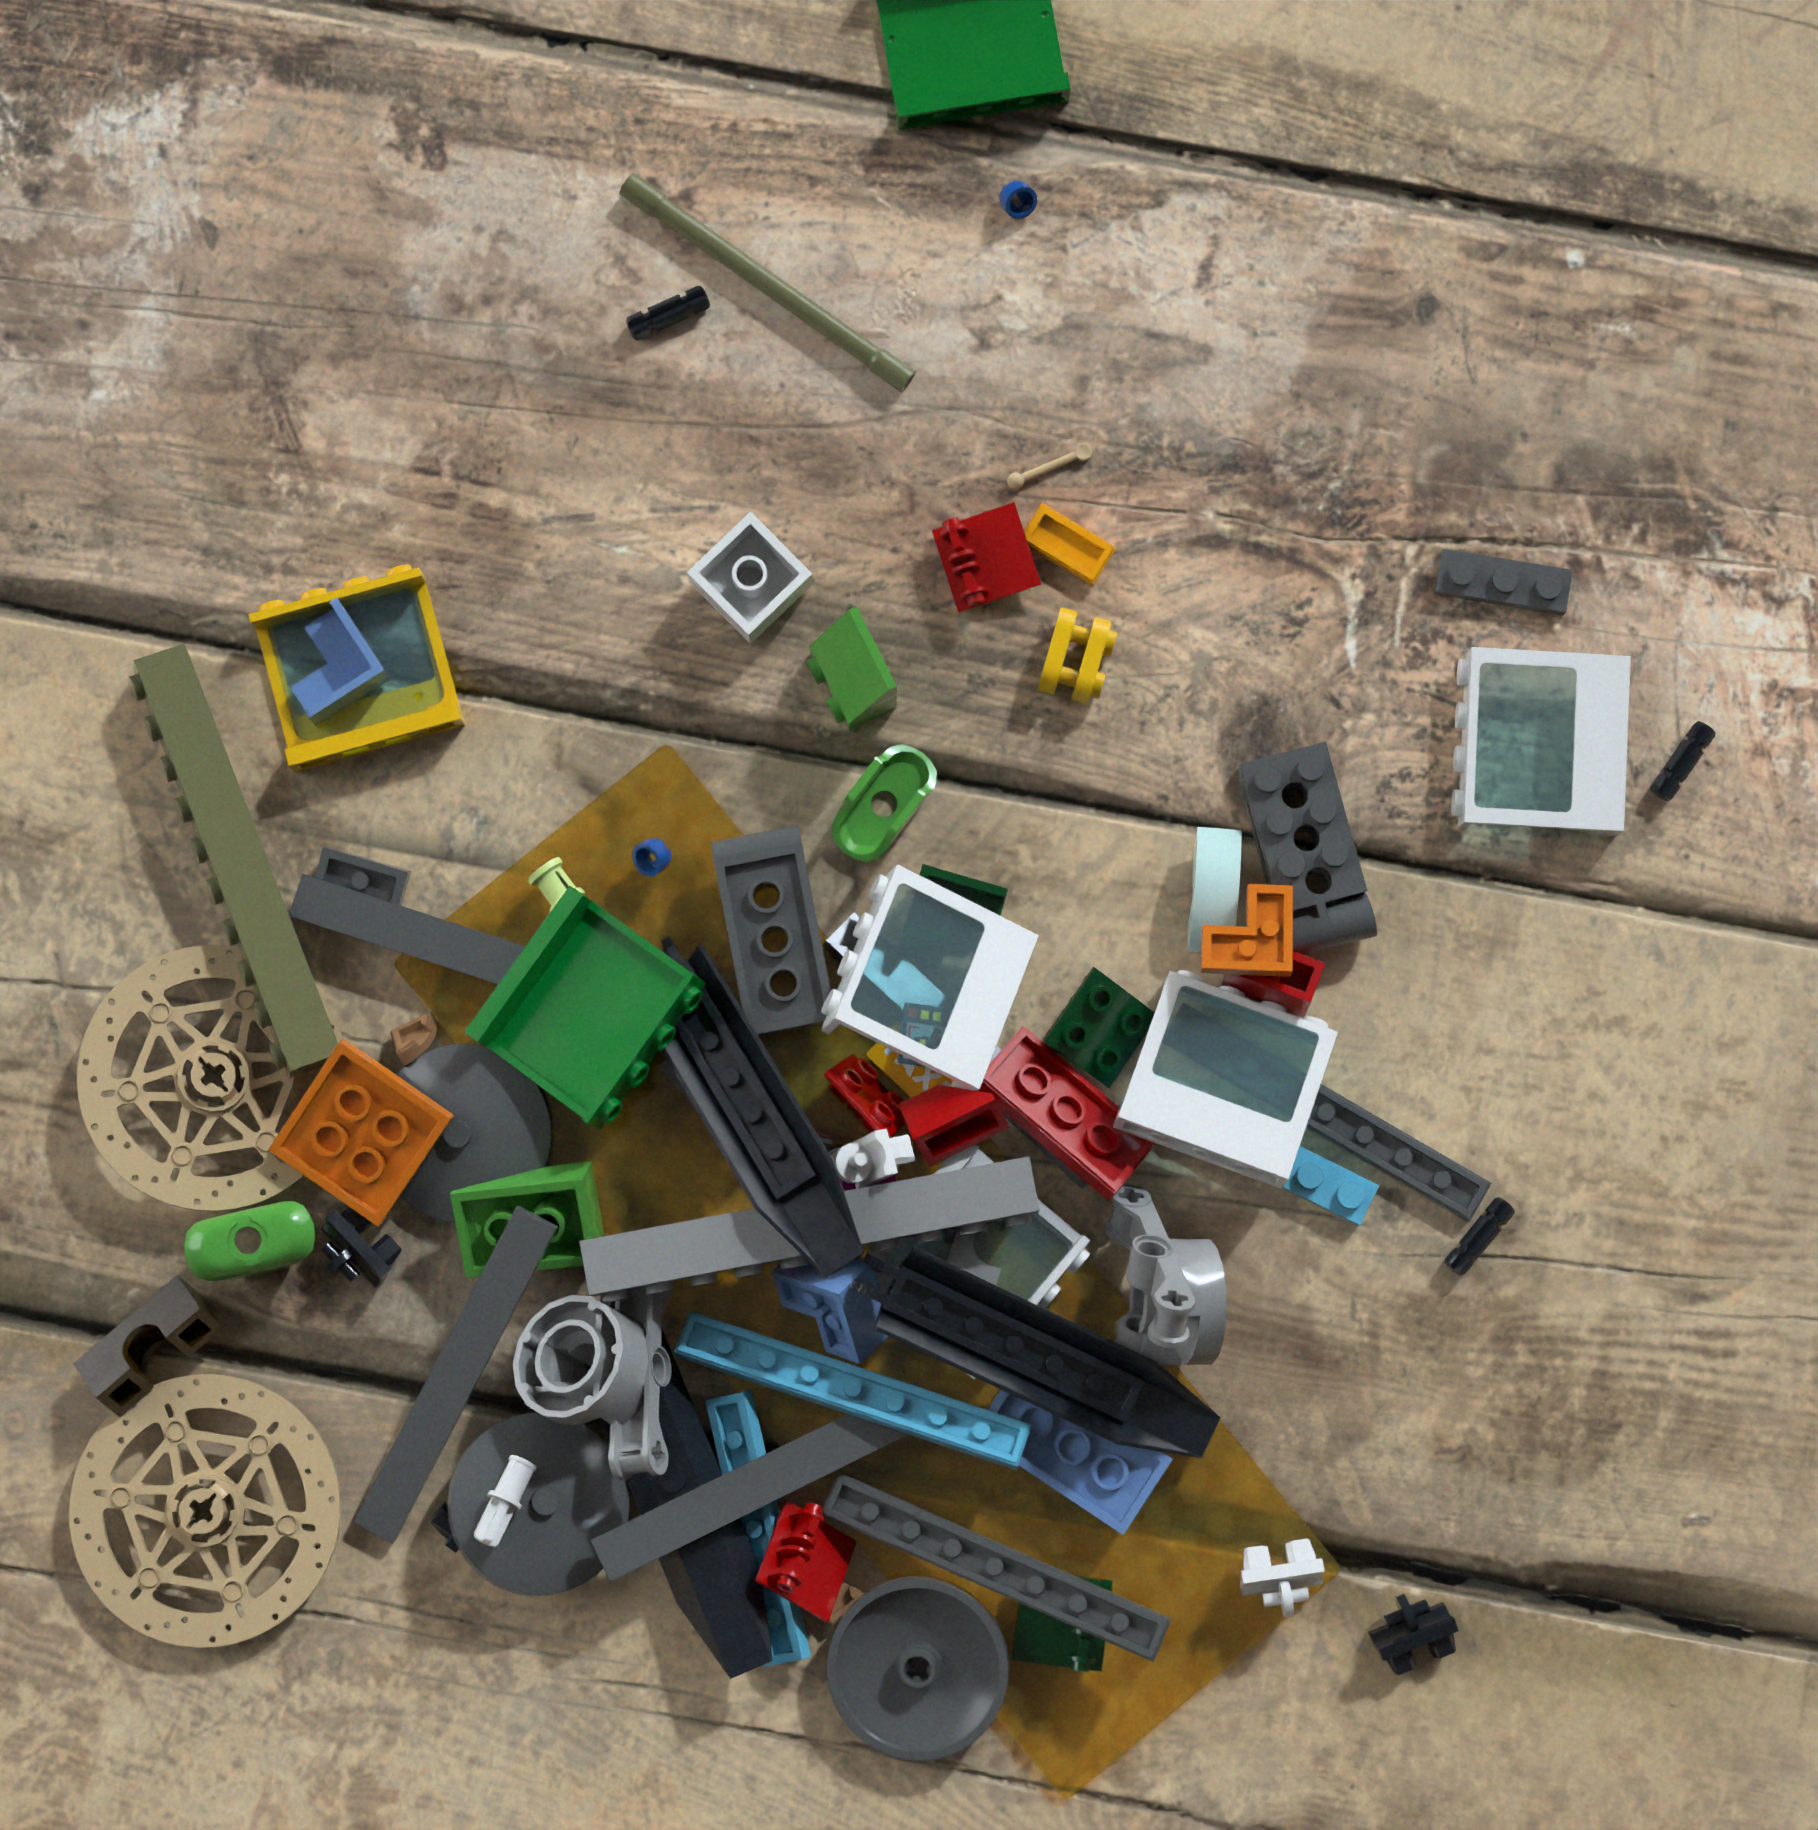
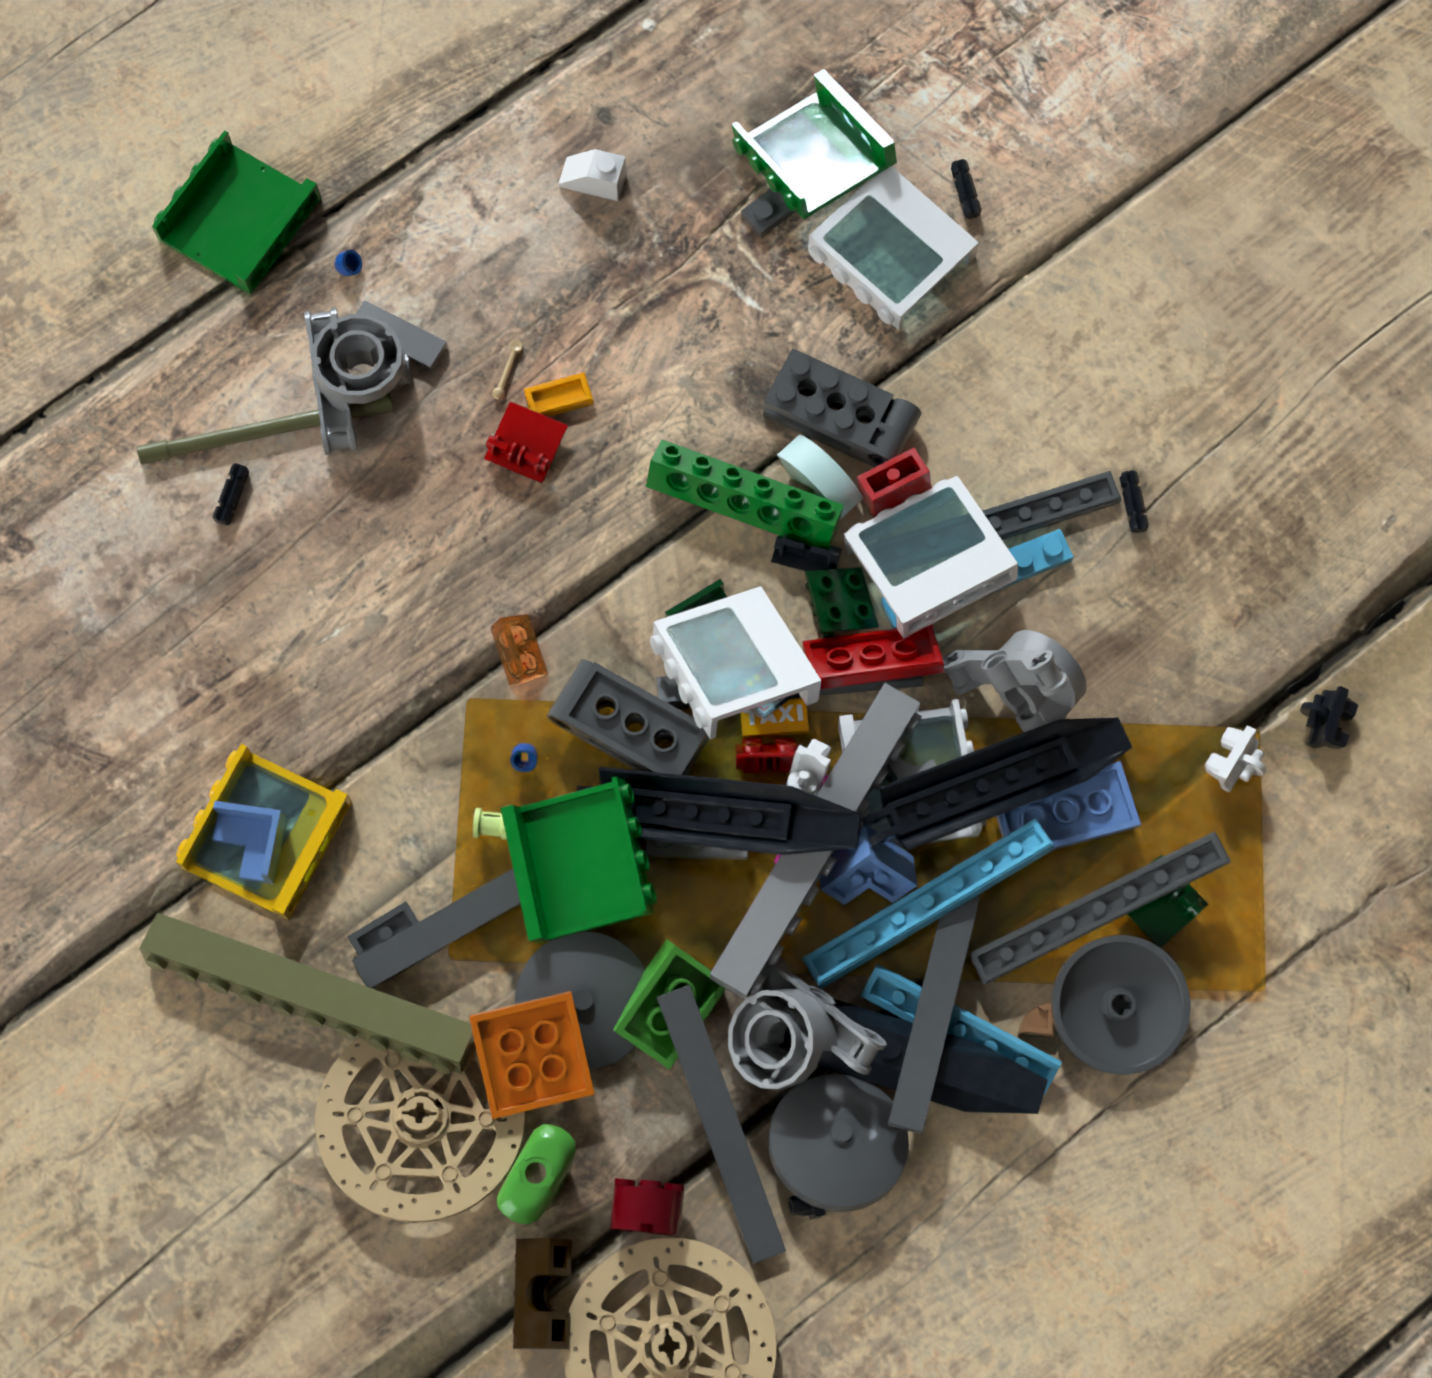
camera: 45 degrees left, 10 degrees down
(313, 1374) = (647, 1207): none -> dark red brick
(371, 1261) = (595, 1124): black hips -> none
(414, 1038) = (503, 982): medium nougat tile -> none
(504, 1501) = (821, 1152): white axle -> none
(750, 577) = (419, 571): white brick -> none
(763, 747) = (518, 649): none -> clear orange slope
(806, 1559) = (1003, 1013): red hinge -> none
(853, 671) = (523, 555): bright green slope -> none
(904, 774) = (611, 586): bright green piece -> none
(920, 280) = (345, 344): none -> light grey piece
(951, 1120) = (824, 713): red slope -> none
(986, 321) = (419, 344): none -> light grey tile
(1098, 642) = (628, 424): yellow brick -> none
(1119, 947) = (802, 557): none -> black hinge
(1122, 832) = (743, 495): none -> green brick
(1262, 945) = (874, 467): orange plate -> none
(1345, 360) = (595, 174): none -> white slope
(1579, 566) = (817, 148): none -> panel

